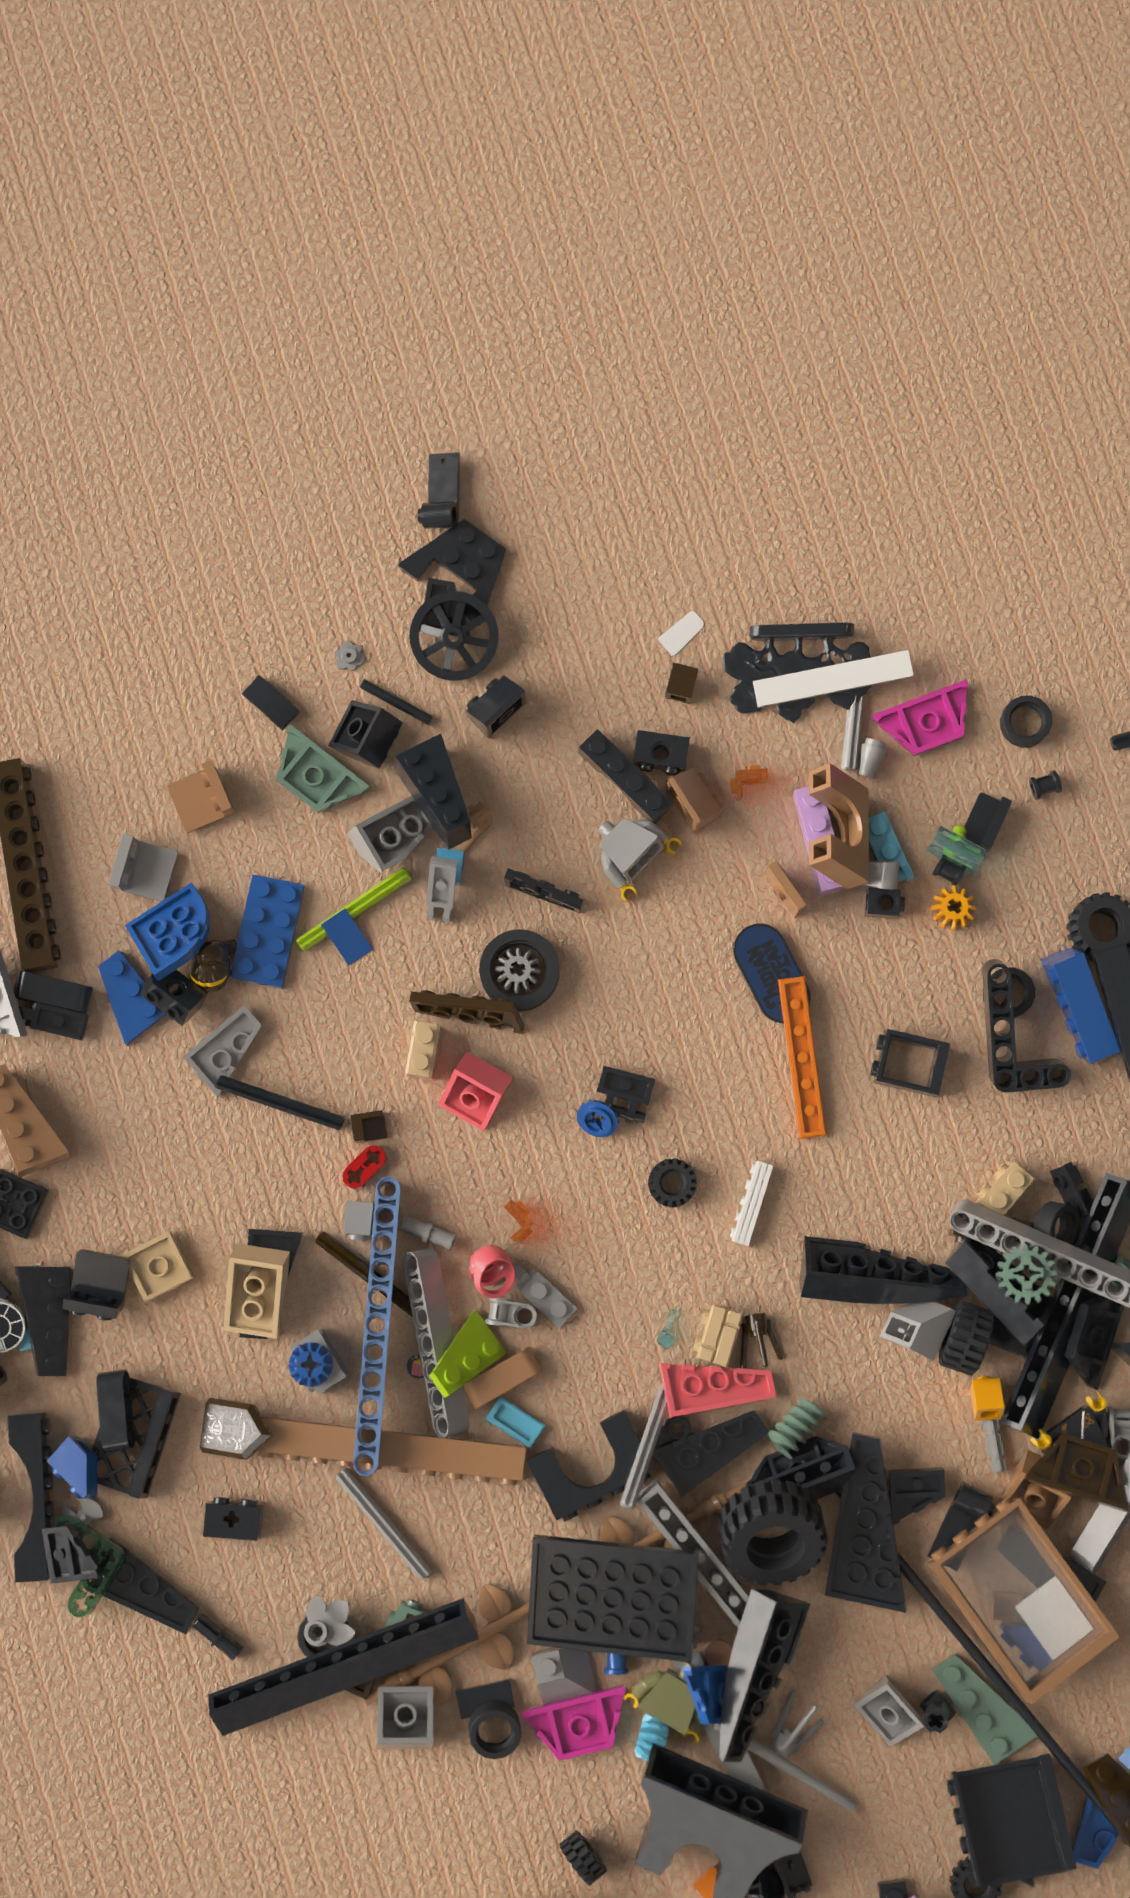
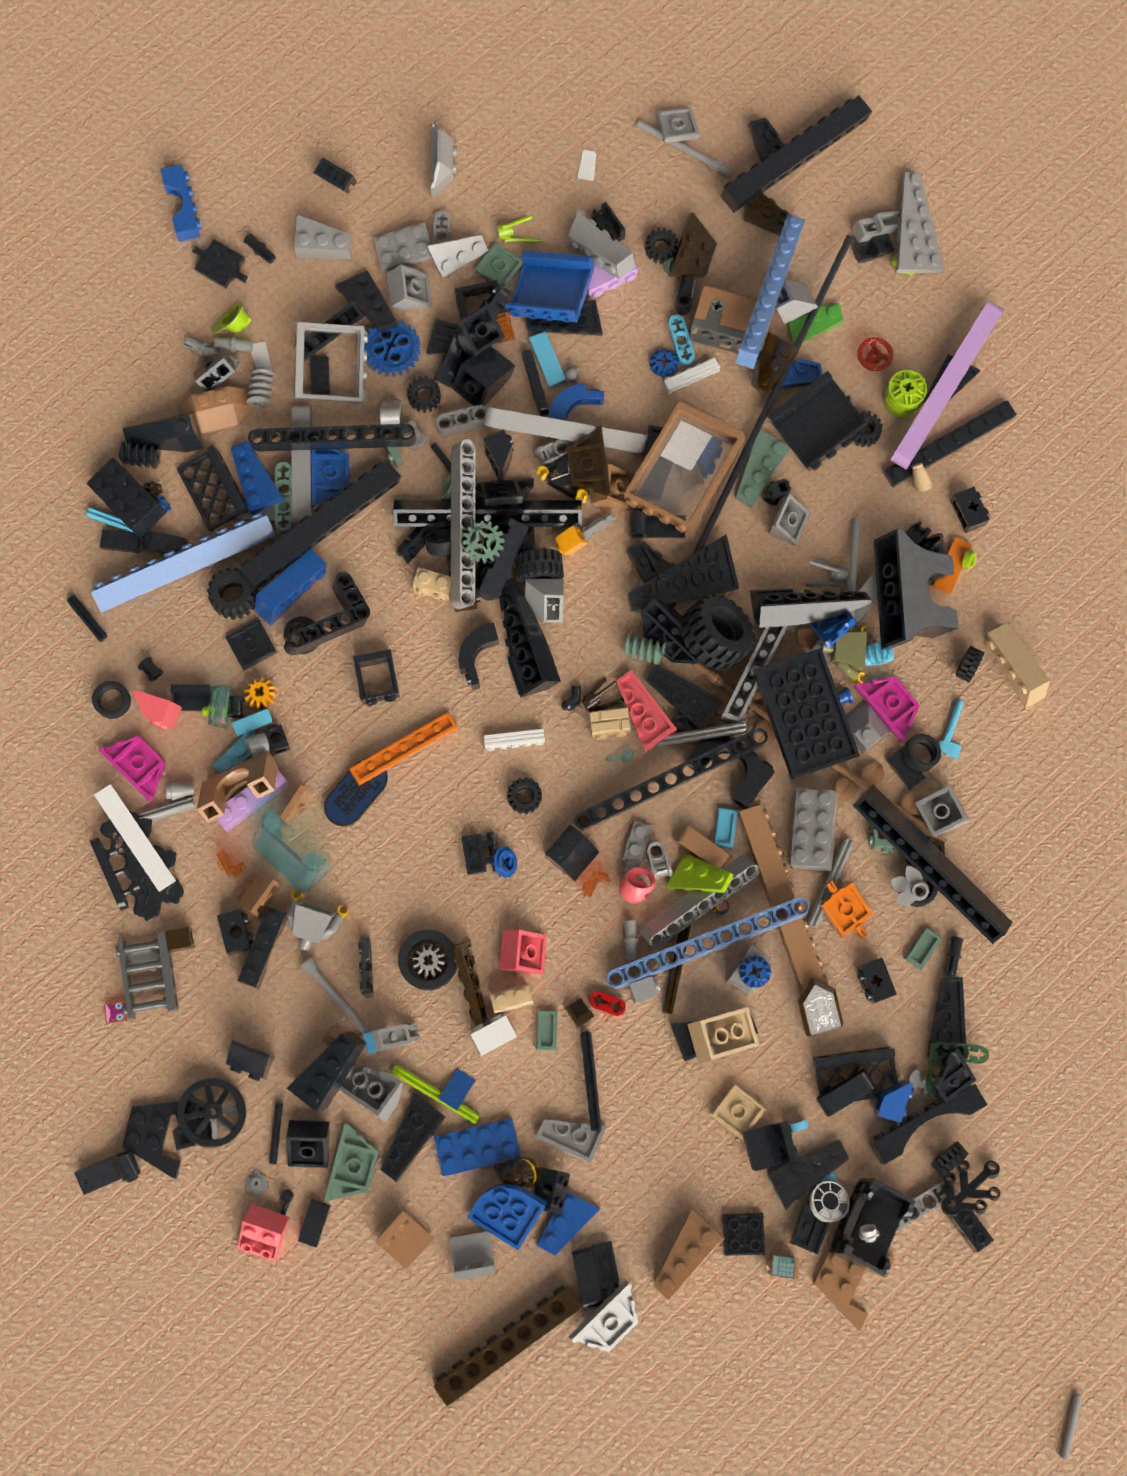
camera: 120 degrees left, 5 degrees down
(106, 1333) = (799, 1125): none -> medium azure tile
(246, 1603) = (923, 948): none -> sand green tile
(287, 639) = (262, 1232): none -> coral slope
(315, 684) = (287, 1196): none -> black hand
(322, 868) = (415, 1131): none -> black wing
(339, 1526) = (846, 909): none -> orange plate
(367, 1078) = (546, 1030): none -> sand green tile
(390, 1008) = (493, 1035): none -> white brick
(459, 1534) = (814, 829): none -> light grey brick
(491, 1769) = (947, 747): none -> medium azure piece
(571, 1209) = (572, 853): none -> black slope
(574, 825) = (311, 968): none -> light grey piece
(610, 1391) = (664, 787): none -> black beam
(628, 574) = (114, 1012): none -> tile
(636, 646) = (166, 982): none -> dark grey fence
(694, 861) = (301, 873): none -> clear light blue windscreen
(768, 1302) = (574, 701): none -> black arm
(900, 1206) = (474, 643): none -> black arch
(919, 882) = (252, 722): none -> medium azure slope
(985, 770) = (158, 710): none -> coral slope
(1024, 924) = (251, 645): none -> black tile

